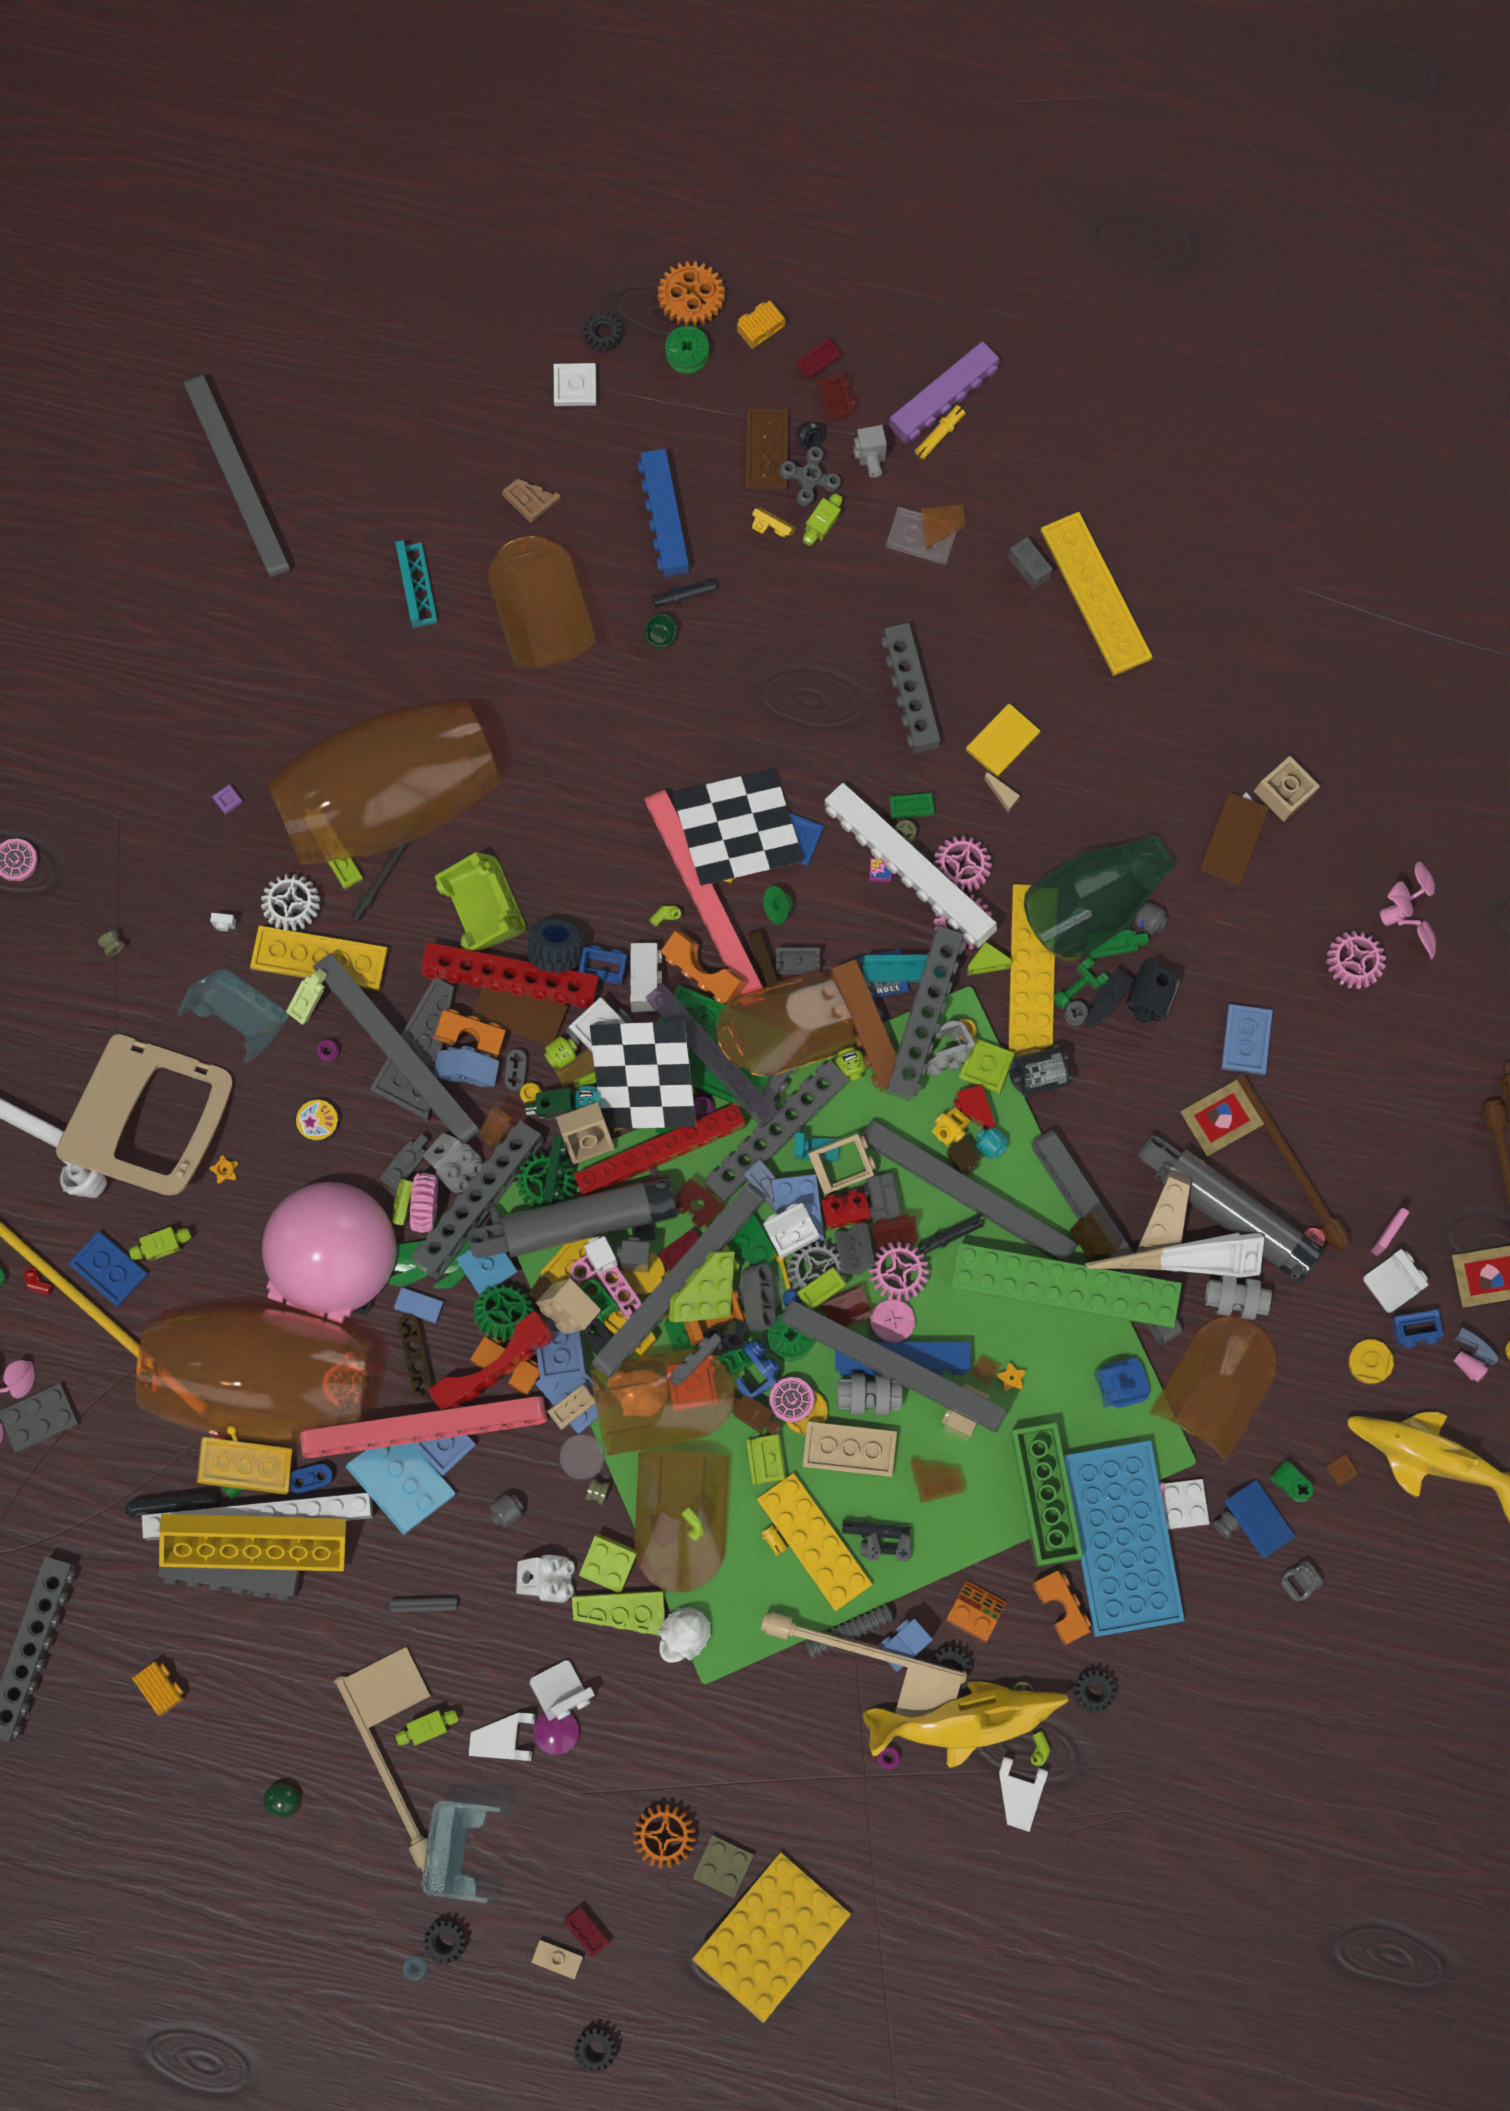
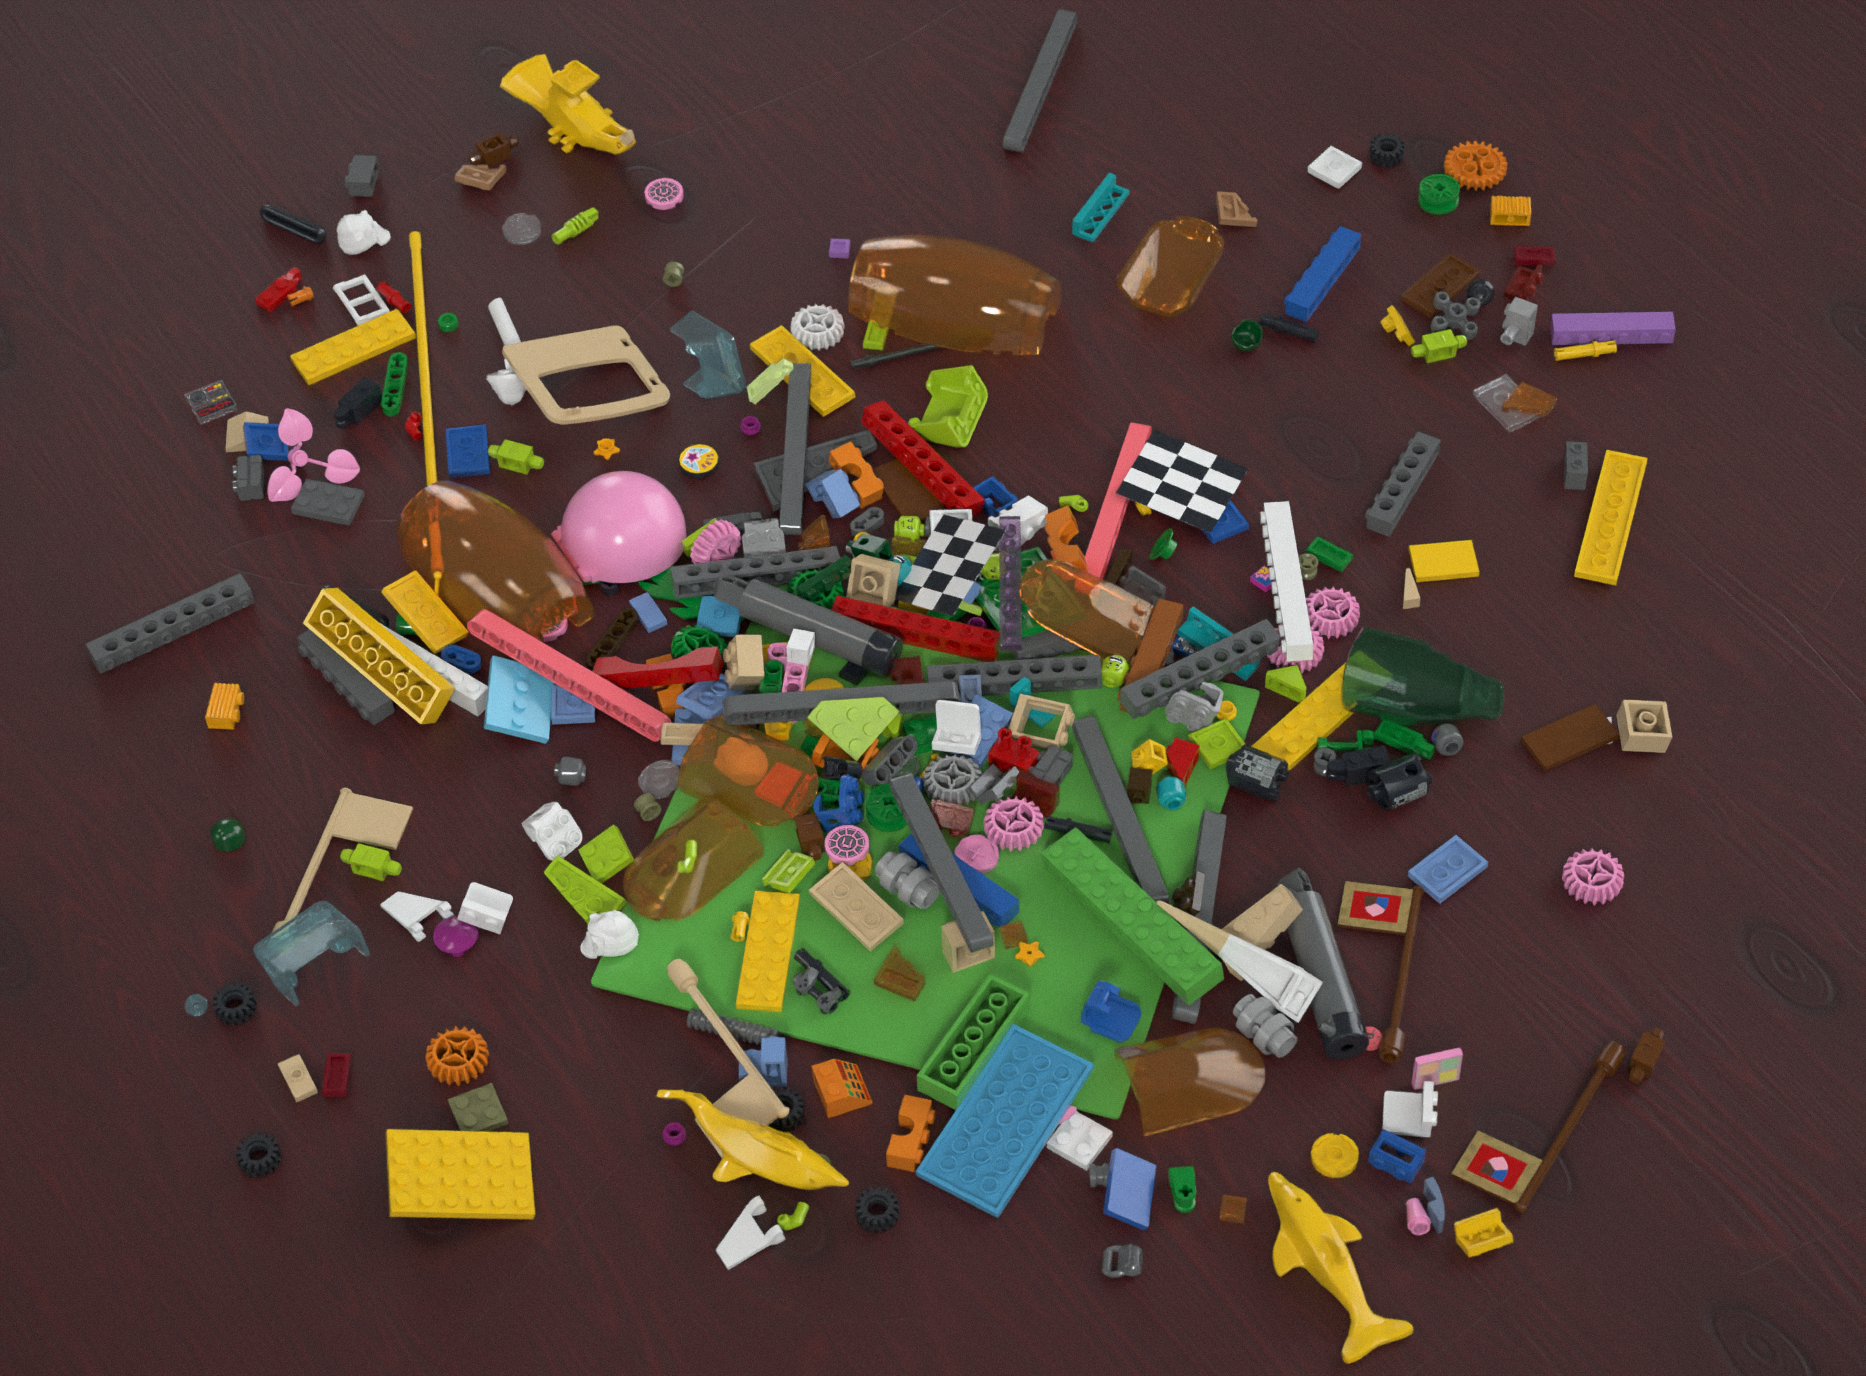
camera: 45 degrees right, 25 degrees down
(223, 921) = (760, 308): white plate -> none
(421, 1605) = (452, 789): dark grey axle -> none
(555, 945) = (971, 459): black wheel -> none
(634, 1255) = (826, 669): dark grey brick -> none
(693, 1360) = (798, 754): dark grey hinge -> none
(821, 1289) = (941, 786): lime tile -> none
(1403, 907) = (1664, 839): bright pink plant -> none

